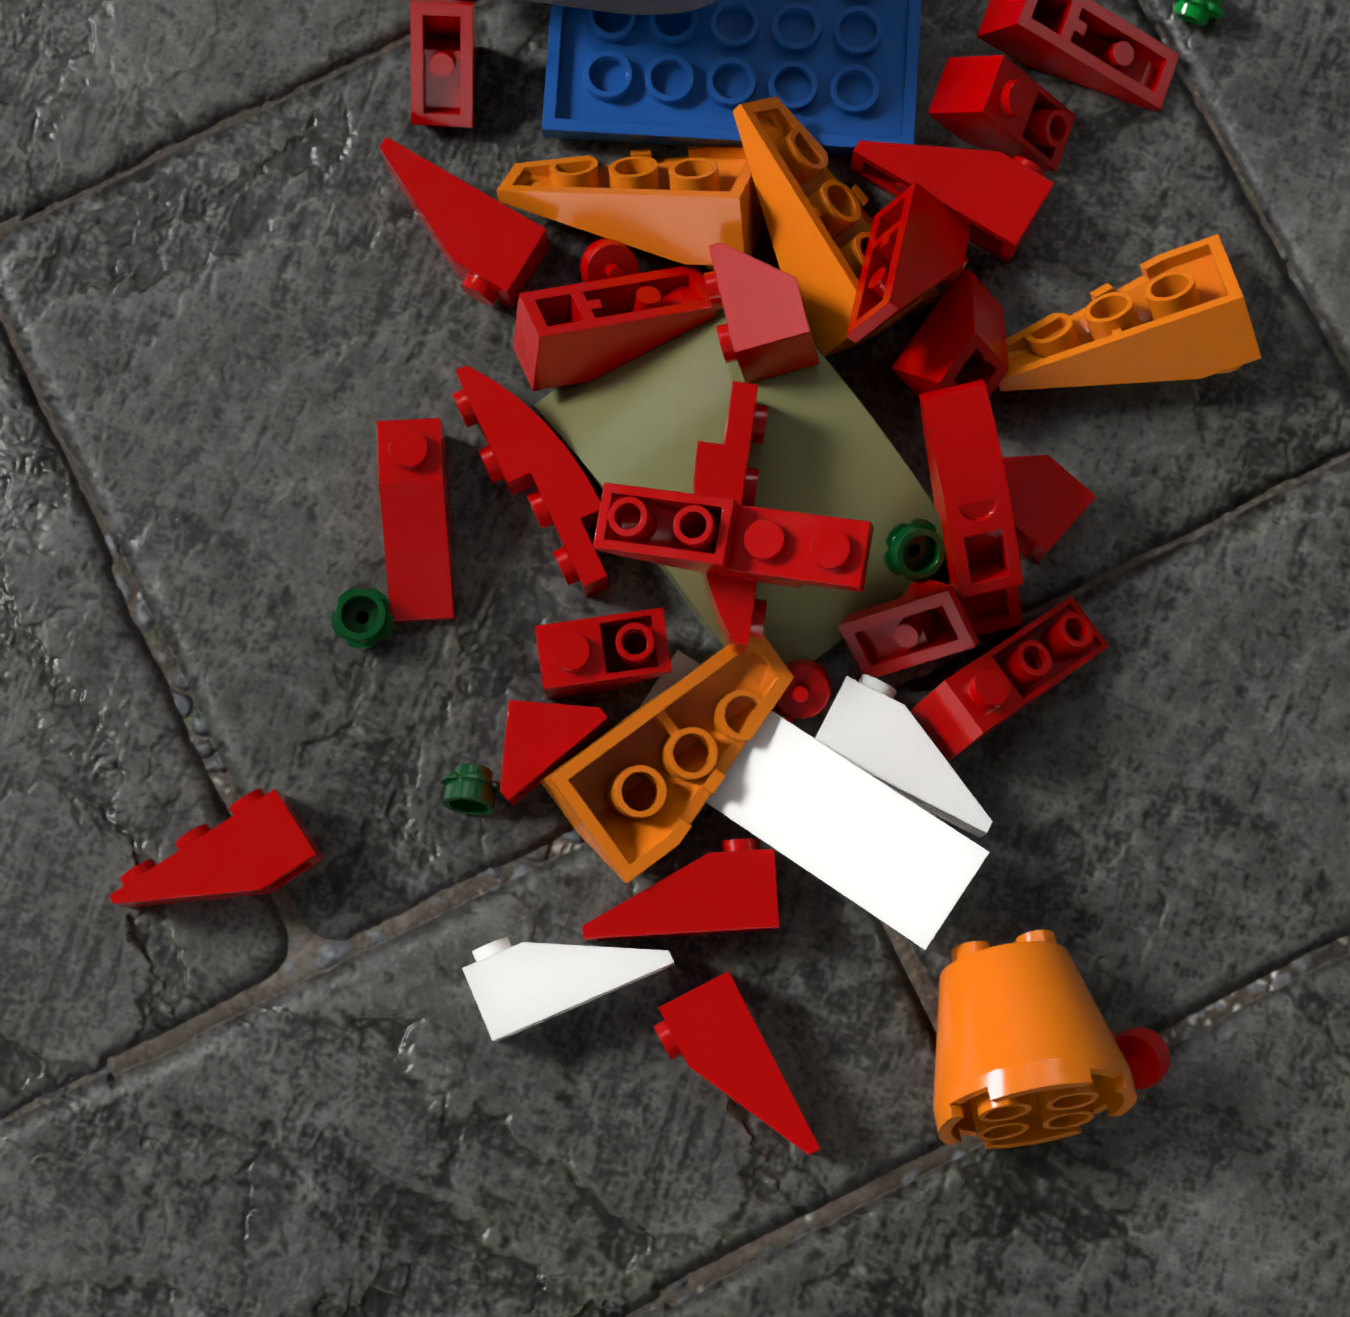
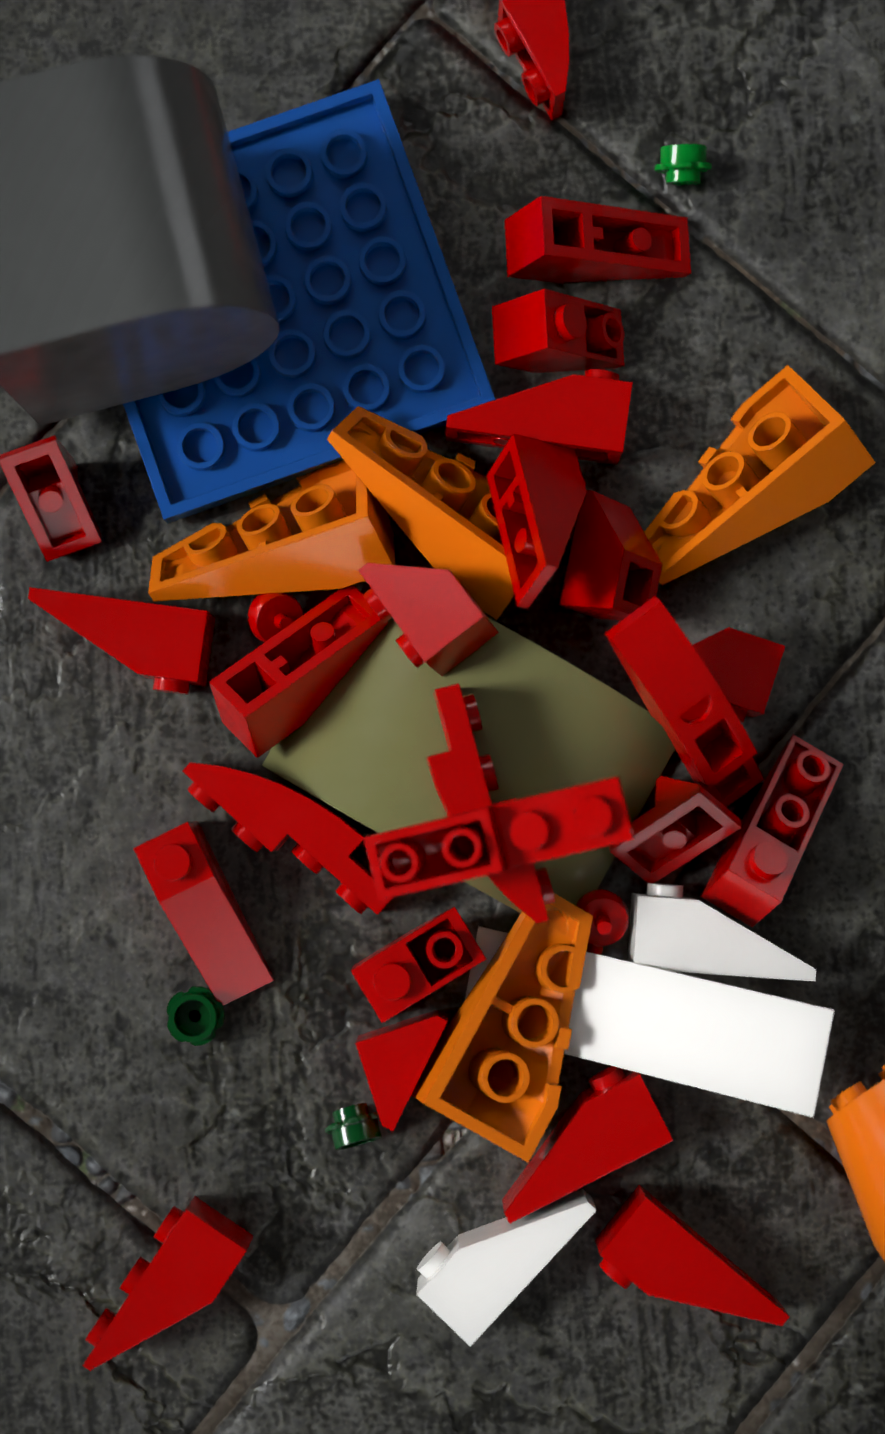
camera: 25 degrees left, 5 degrees up
(926, 559) = (660, 763): dark green plate -> none

